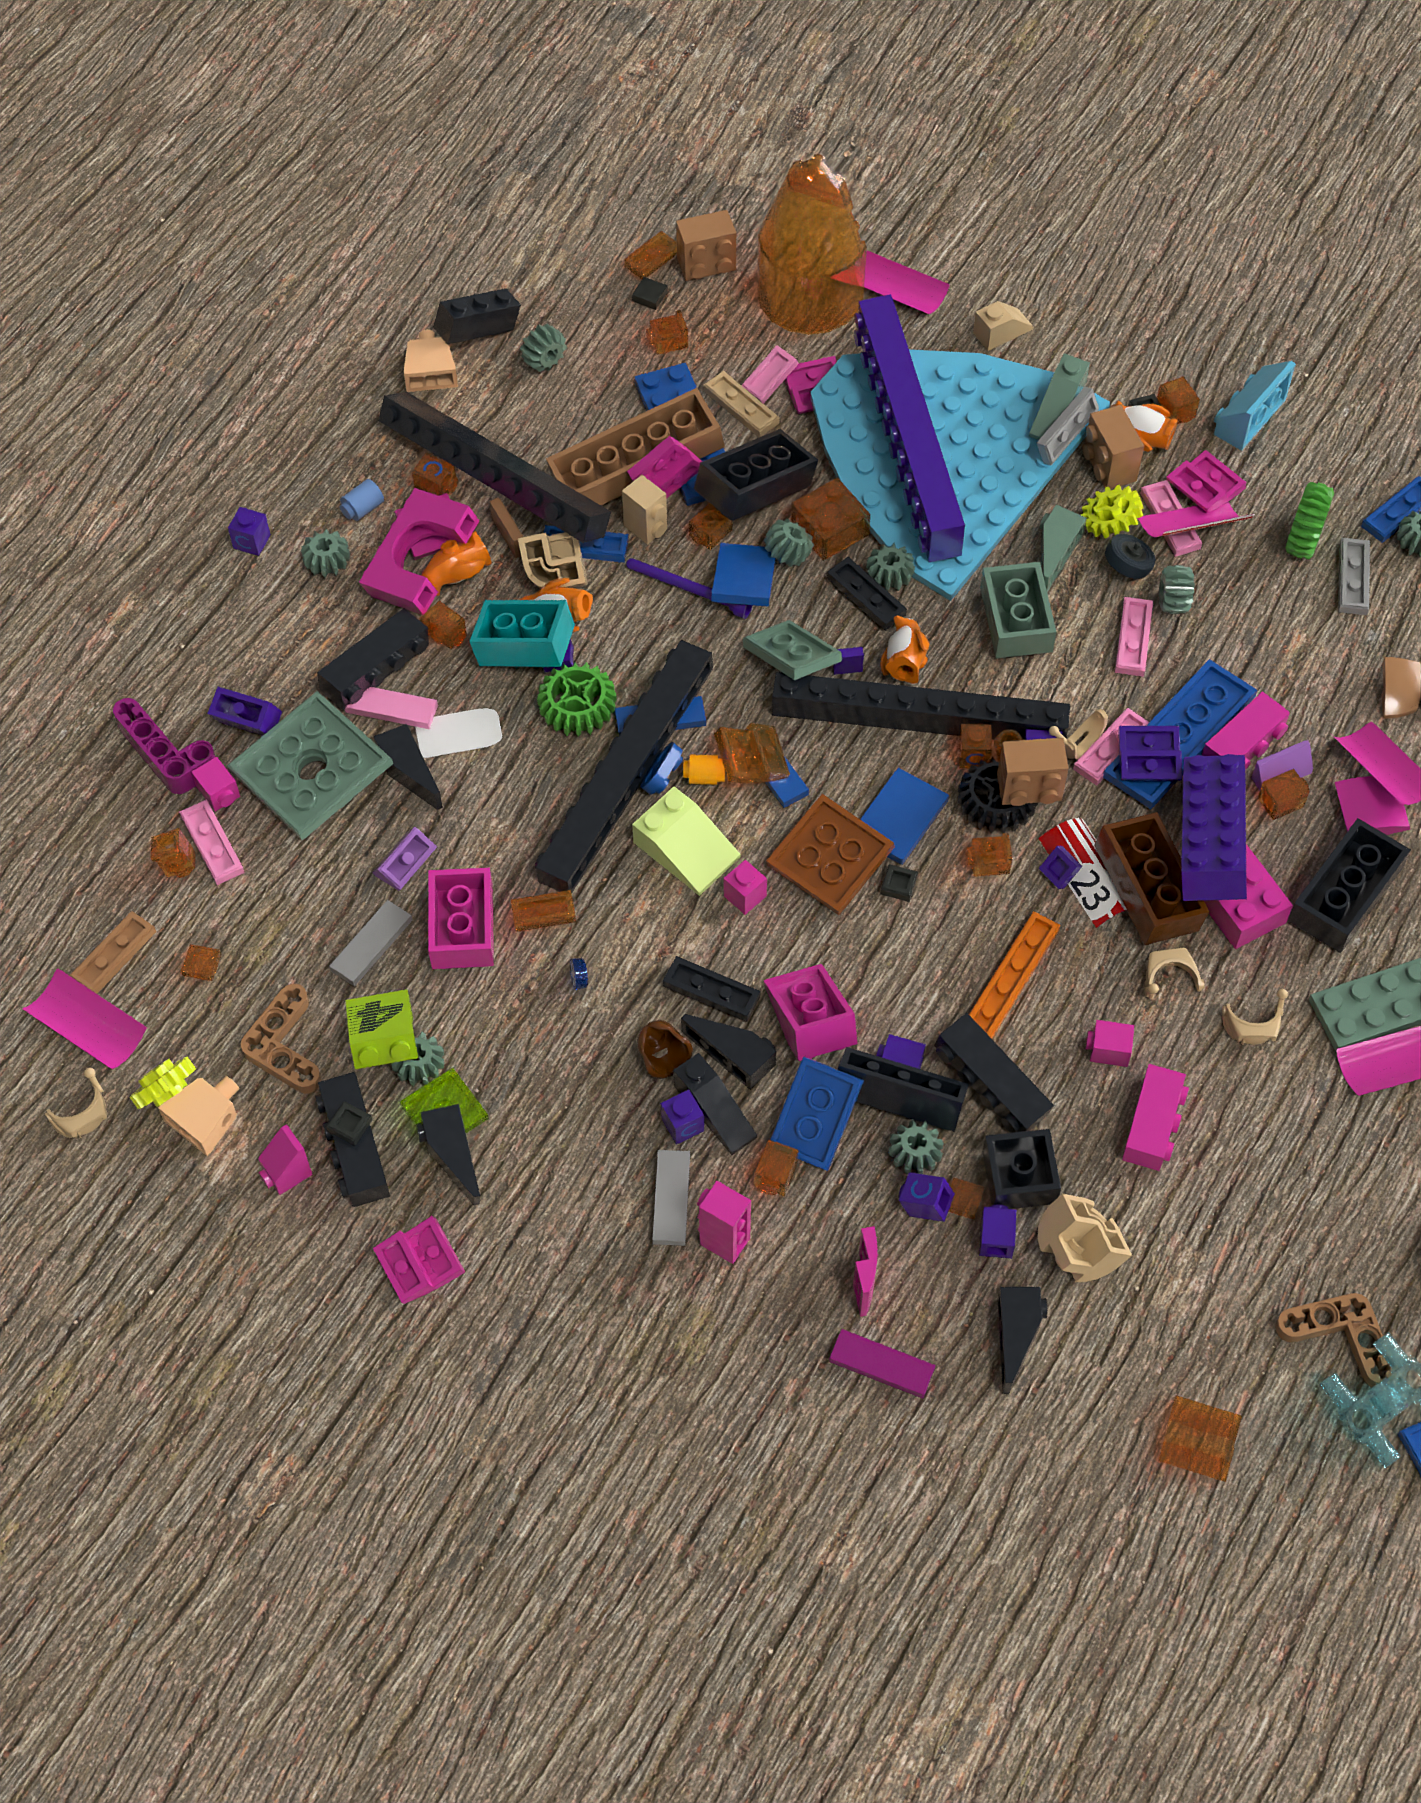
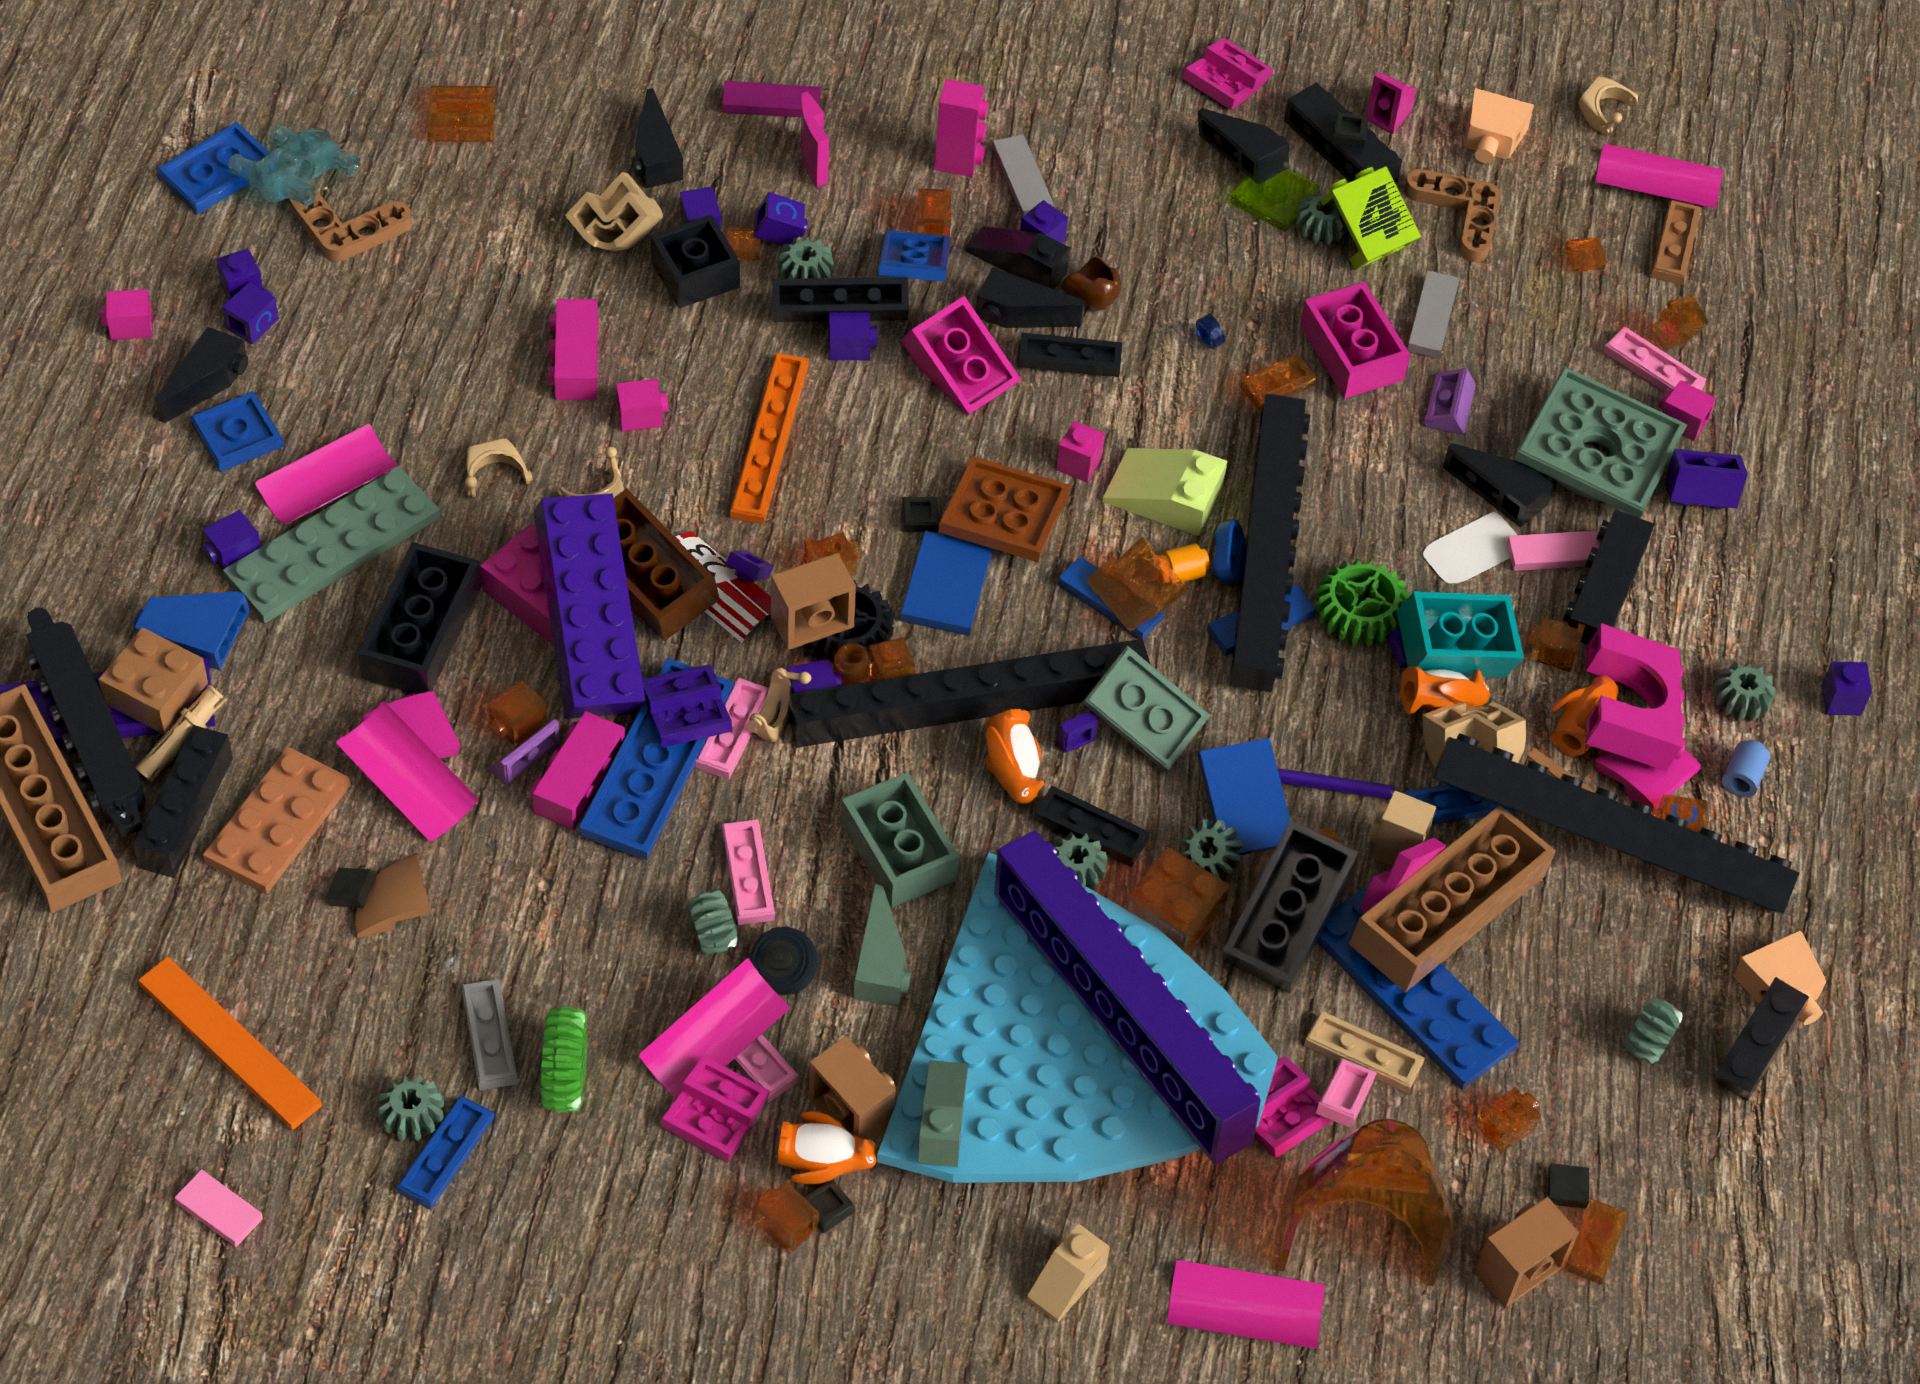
camera: 155 degrees right, 5 degrees down
(156, 744) = (1771, 428): magenta beam -> none
(162, 1082) = (1543, 123): neon yellow gear -> none
(992, 1075) = (751, 335): black brick -> none
(1067, 426) = (919, 1072): light grey tile -> none
(1112, 511) = (817, 996): neon yellow gear -> none
(1254, 404) = (682, 1232): medium azure slope -> none

